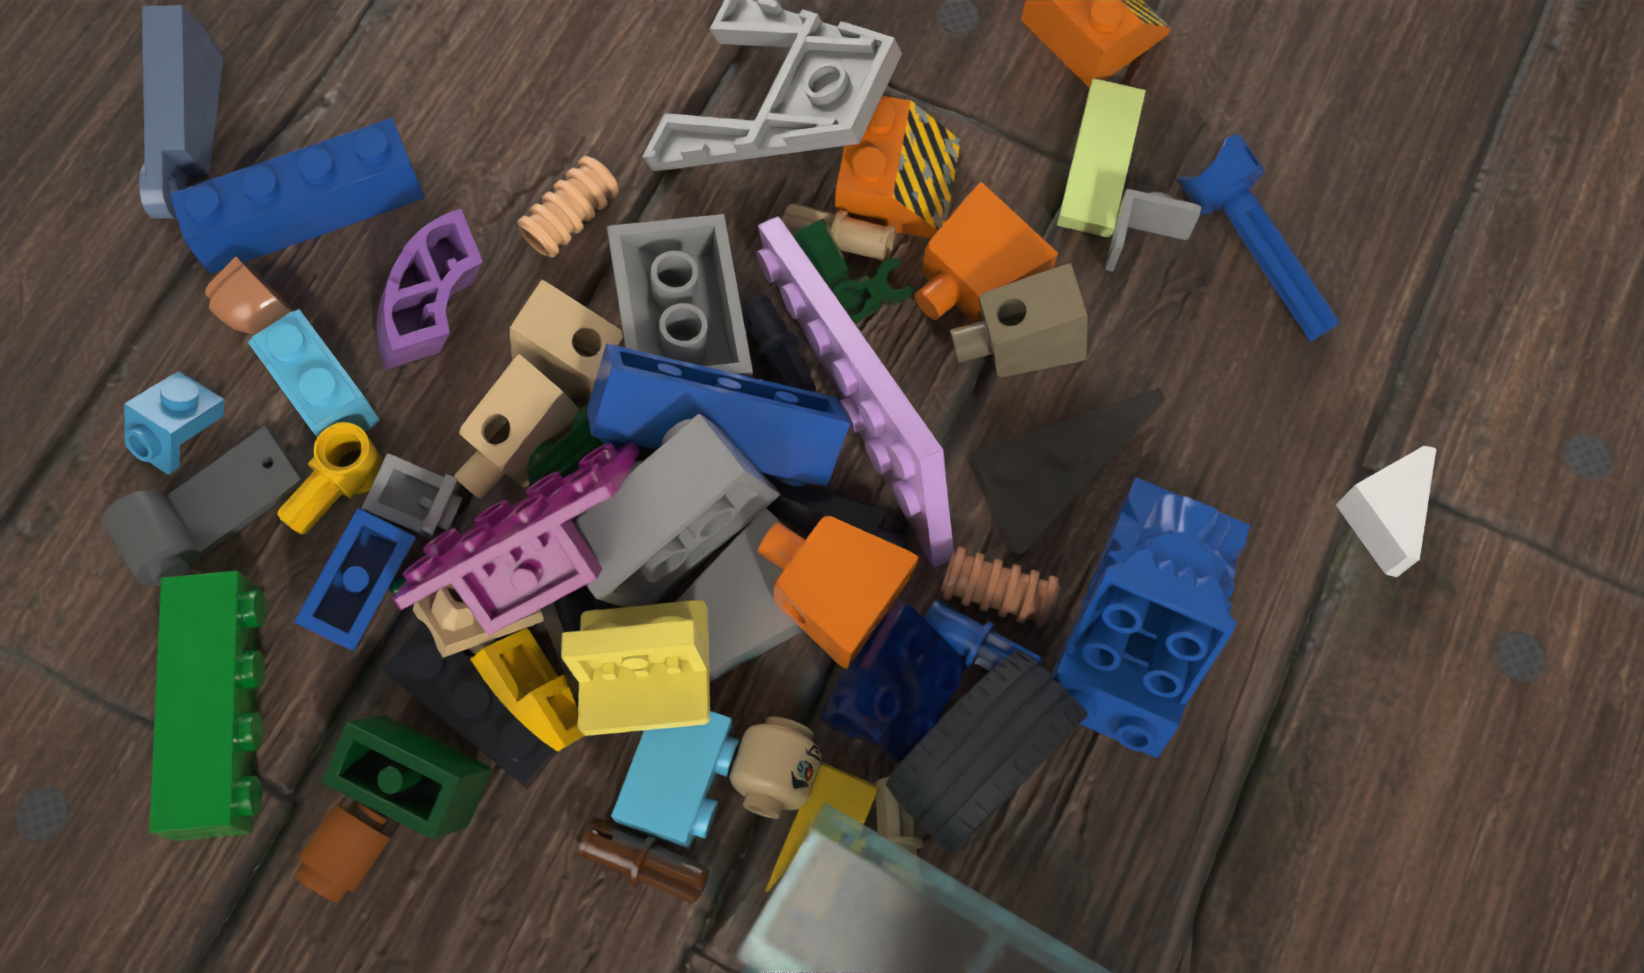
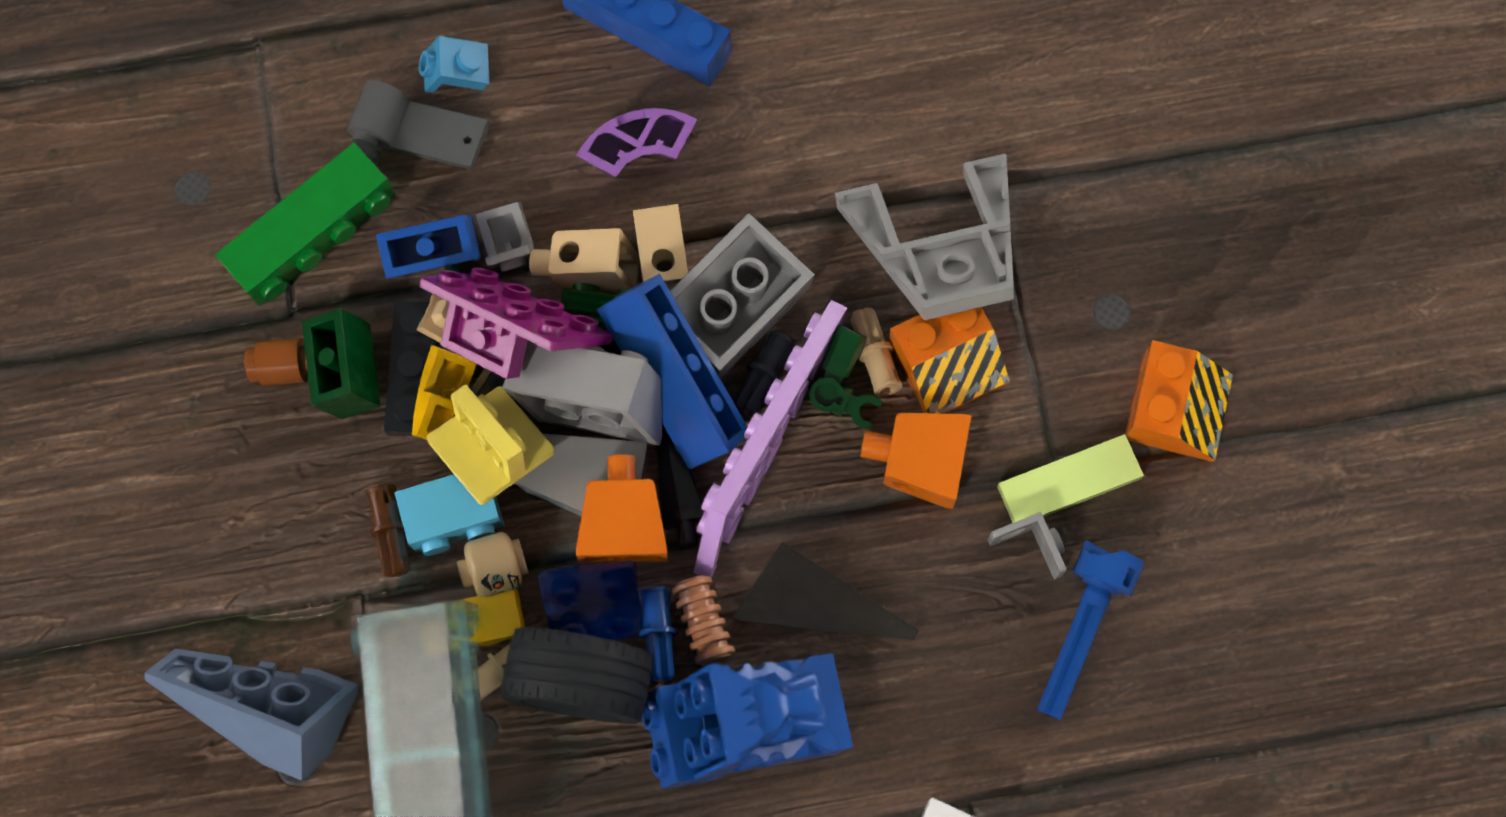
camera: 60 degrees right, 5 degrees up
(244, 298) = (559, 45): nougat piece -> none
(311, 375) = (534, 124): medium azure brick -> none
(330, 481) = (481, 182): yellow axle -> none
(568, 206) = (763, 176): light nougat piece -> none
(1028, 324) = (891, 516): dark tan torso -> none

